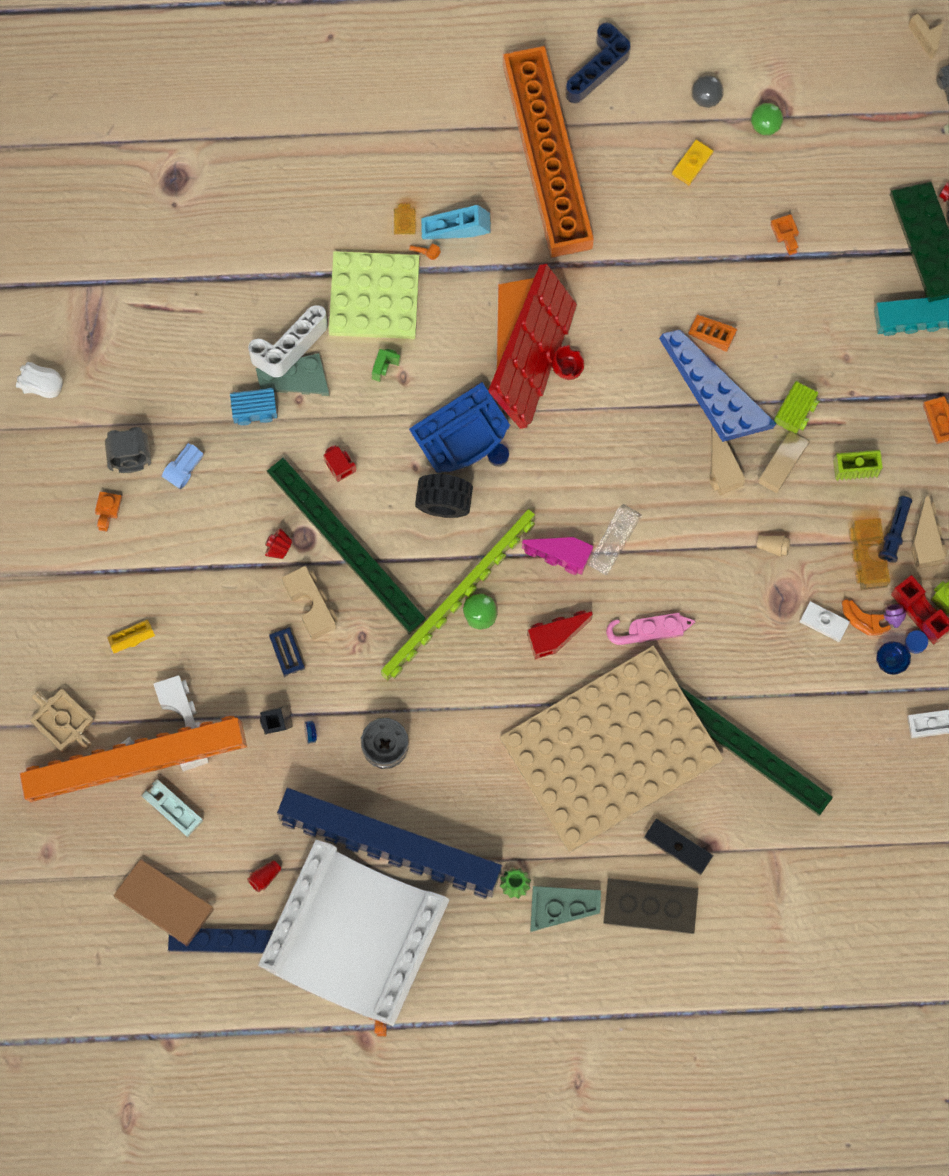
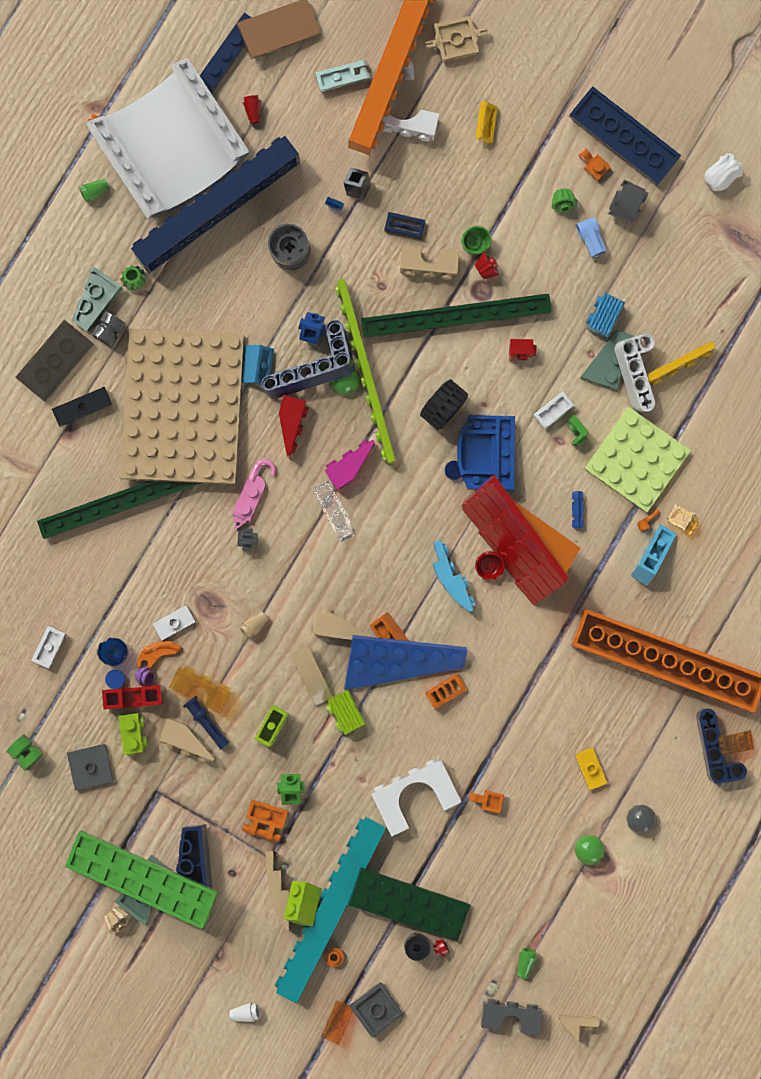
camera: 120 degrees right, 10 degrees up
(59, 497) = (624, 135): none -> dark blue plate
(163, 513) = (563, 200): none -> bright green piece
(249, 307) = (687, 360): none -> yellow plate
(258, 571) = (476, 240): none -> bright green hair
(378, 397) = (553, 410): none -> white plate
(450, 671) = (312, 328): none -> blue brick
(452, 981) = (93, 189): none -> bright green cone
(459, 319) = (577, 509): none -> blue axle
(488, 640) = (314, 368): none -> dark blue beam
(521, 704) = (256, 363): none -> dark azure panel
(581, 49) = (736, 743): none -> clear orange tile
(584, 870) = (108, 328): none -> dark grey wheel
(607, 385) = (454, 585): none -> medium azure slope
(692, 420) = (387, 628): none -> orange slope
(698, 601) = (247, 539): none -> dark grey gear
(844, 321) = (388, 796): none -> white arch
(902, 411) = (290, 785): none -> bright green brick
(906, 111) = (526, 961): none -> bright green cone

